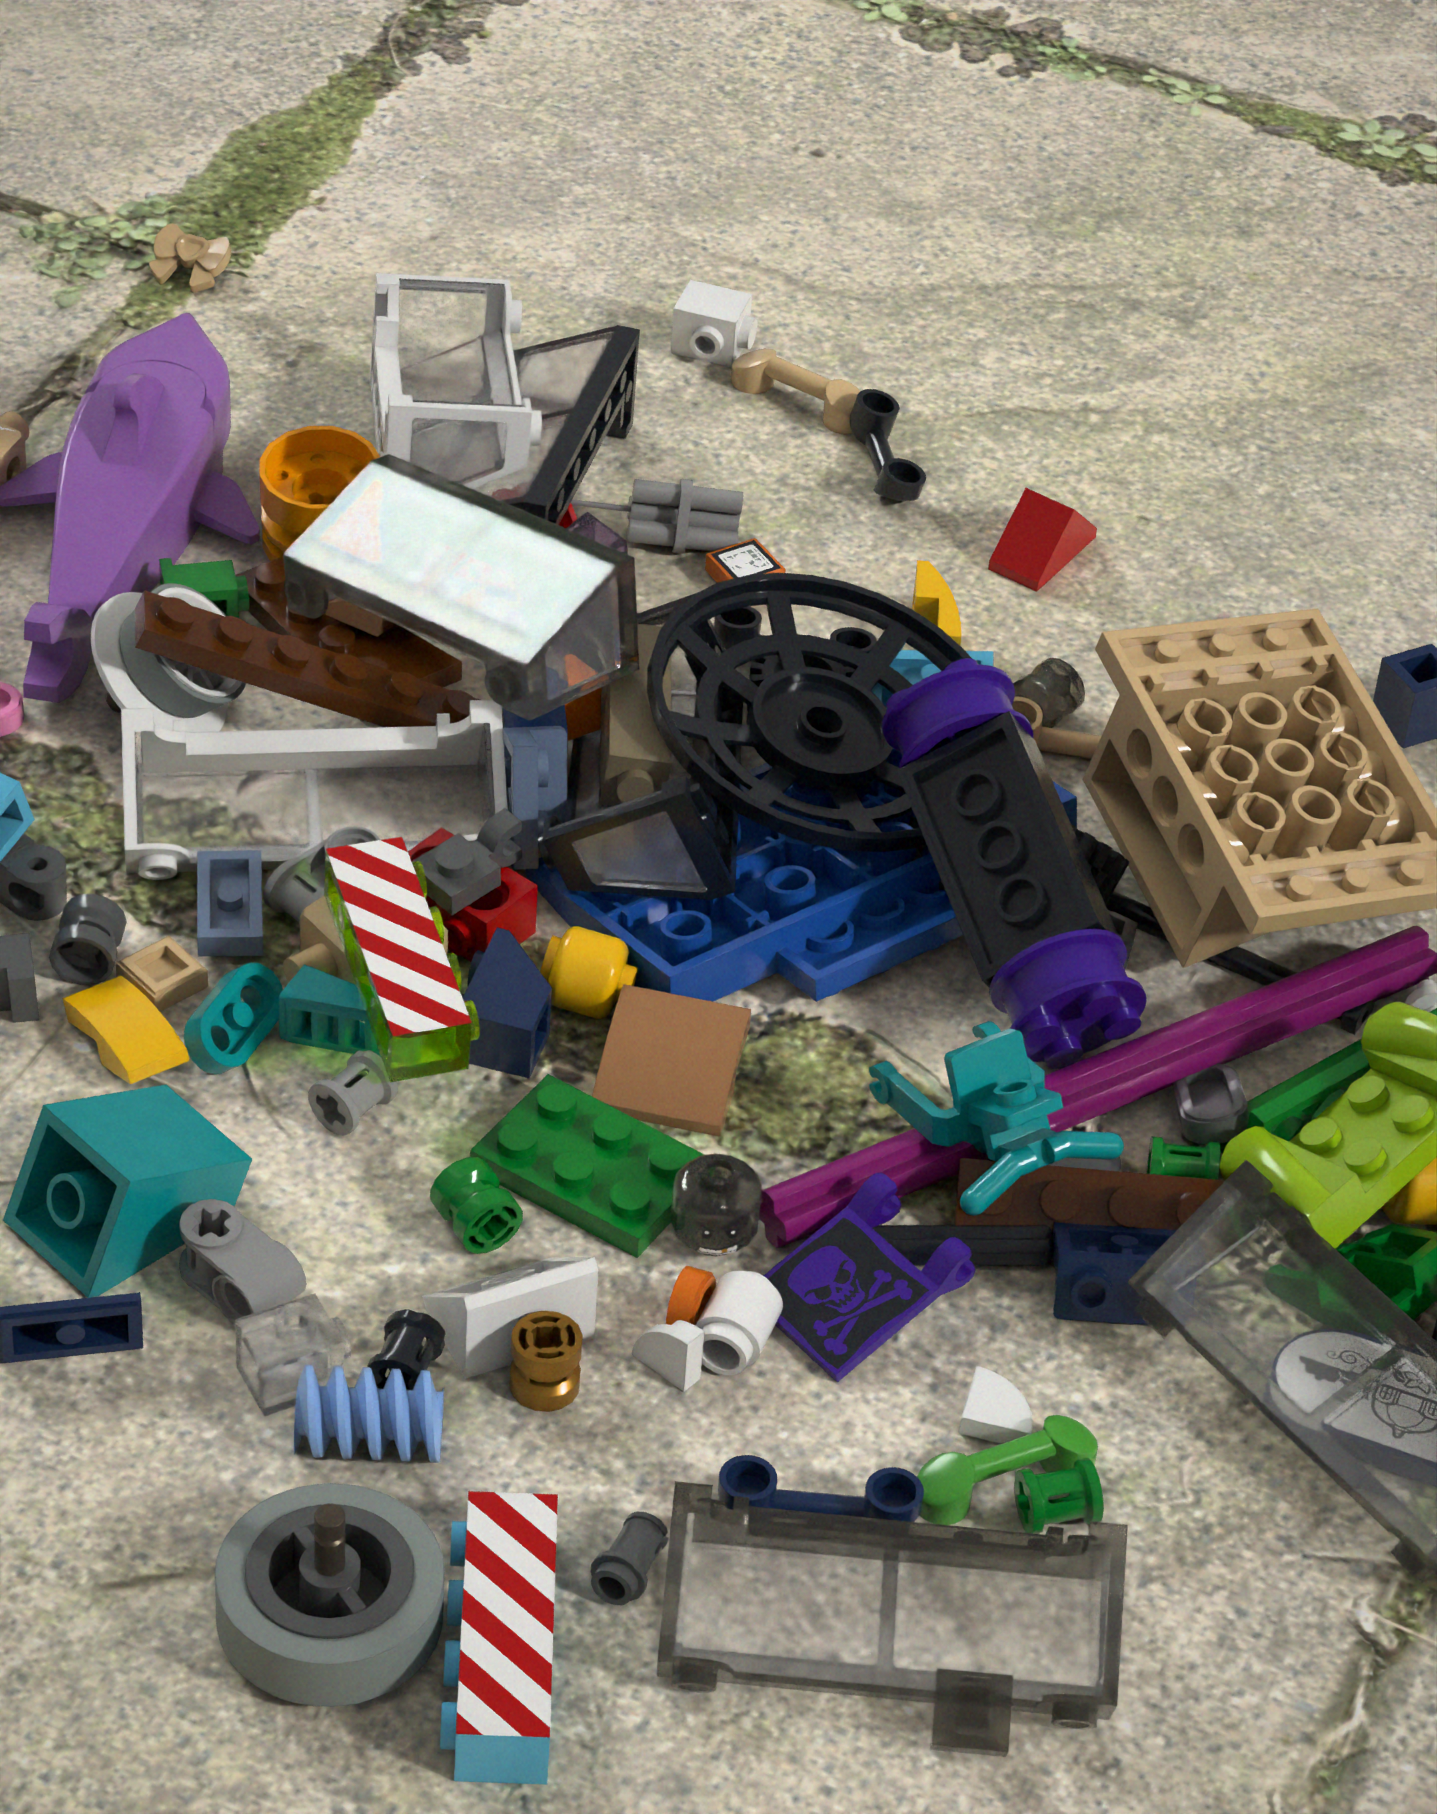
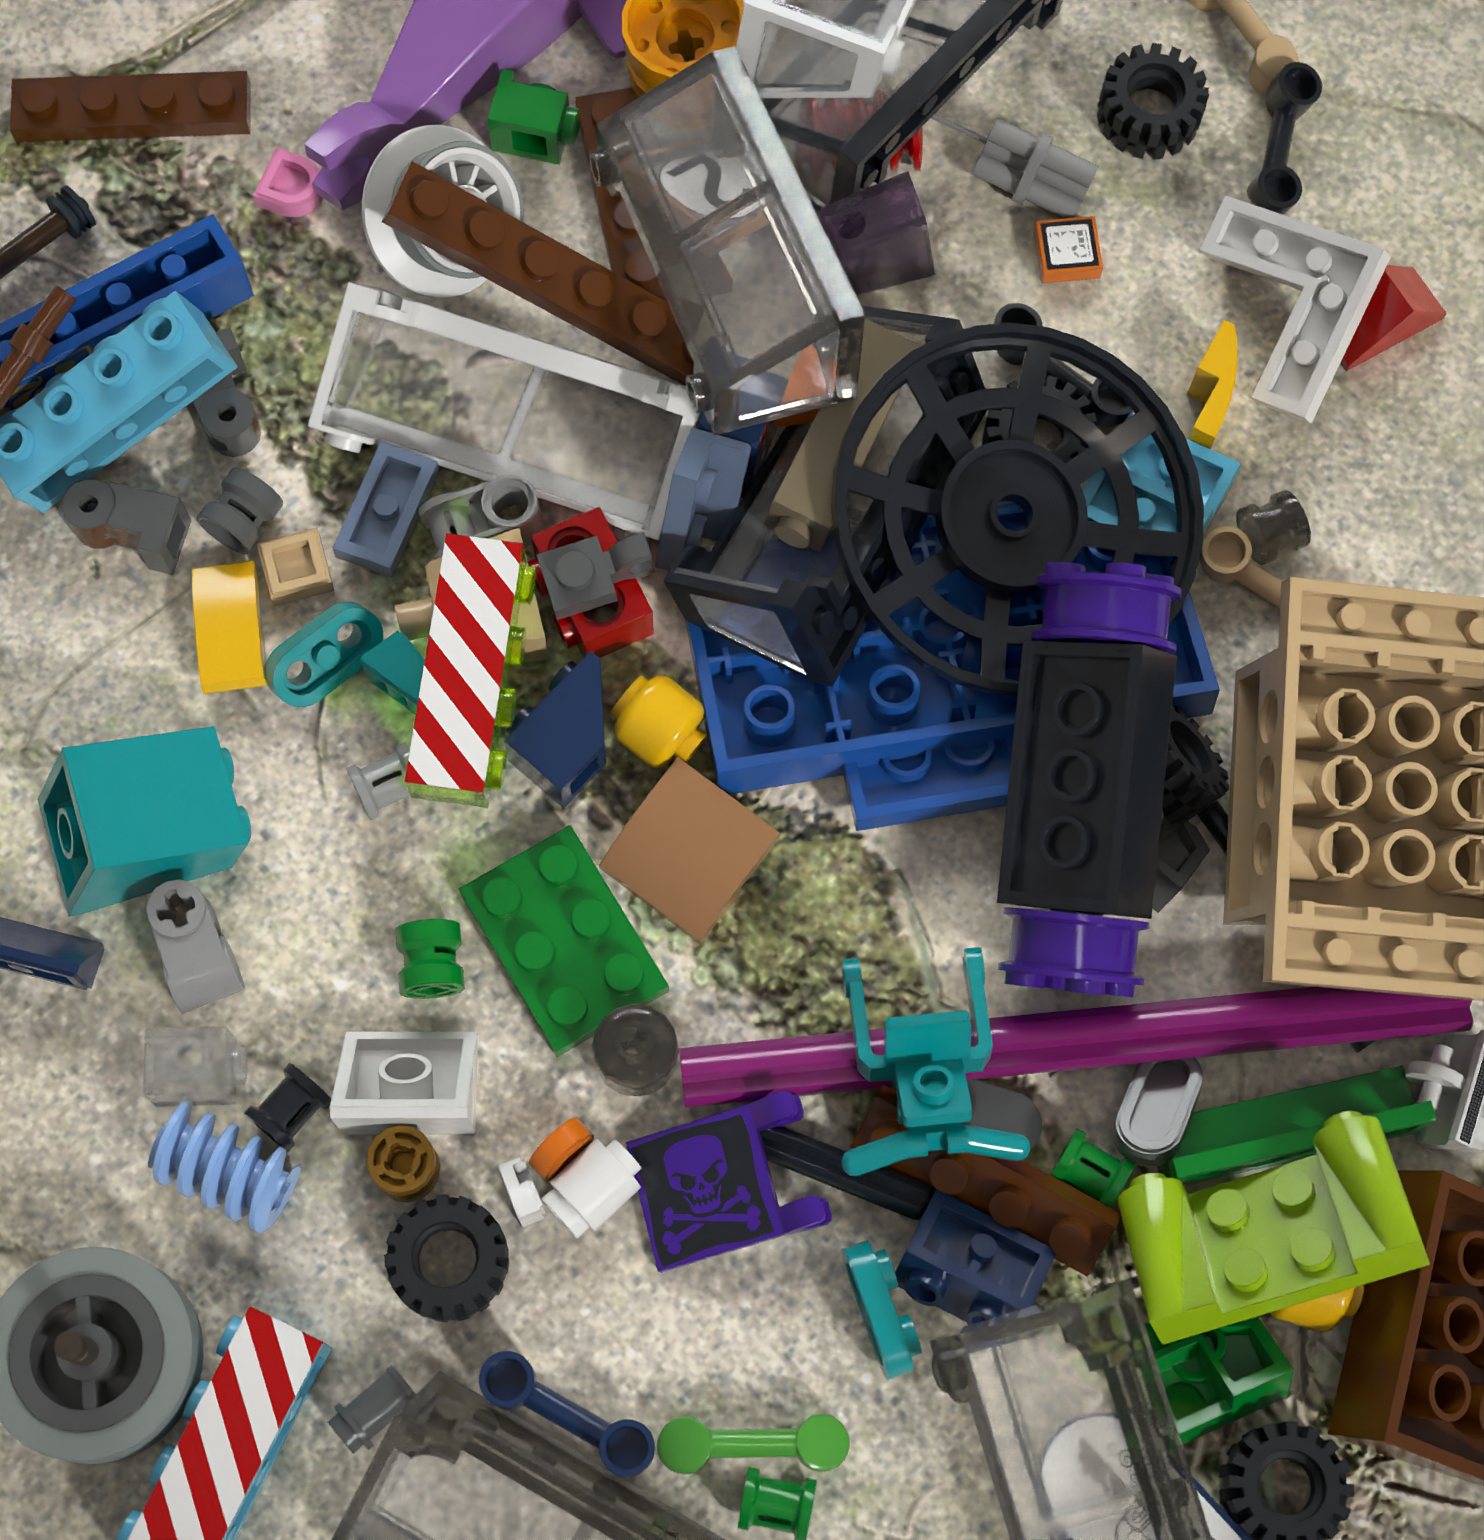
camera: 25 degrees right, 30 degrees up
(630, 1452) = (412, 1233): none -> black tyre
(756, 452) = (1156, 73): none -> black tyre
(987, 504) = (1335, 285): none -> white plate
(995, 1409) = (778, 1373): white tile -> none
(1058, 1324) = (891, 1336): none -> teal plate

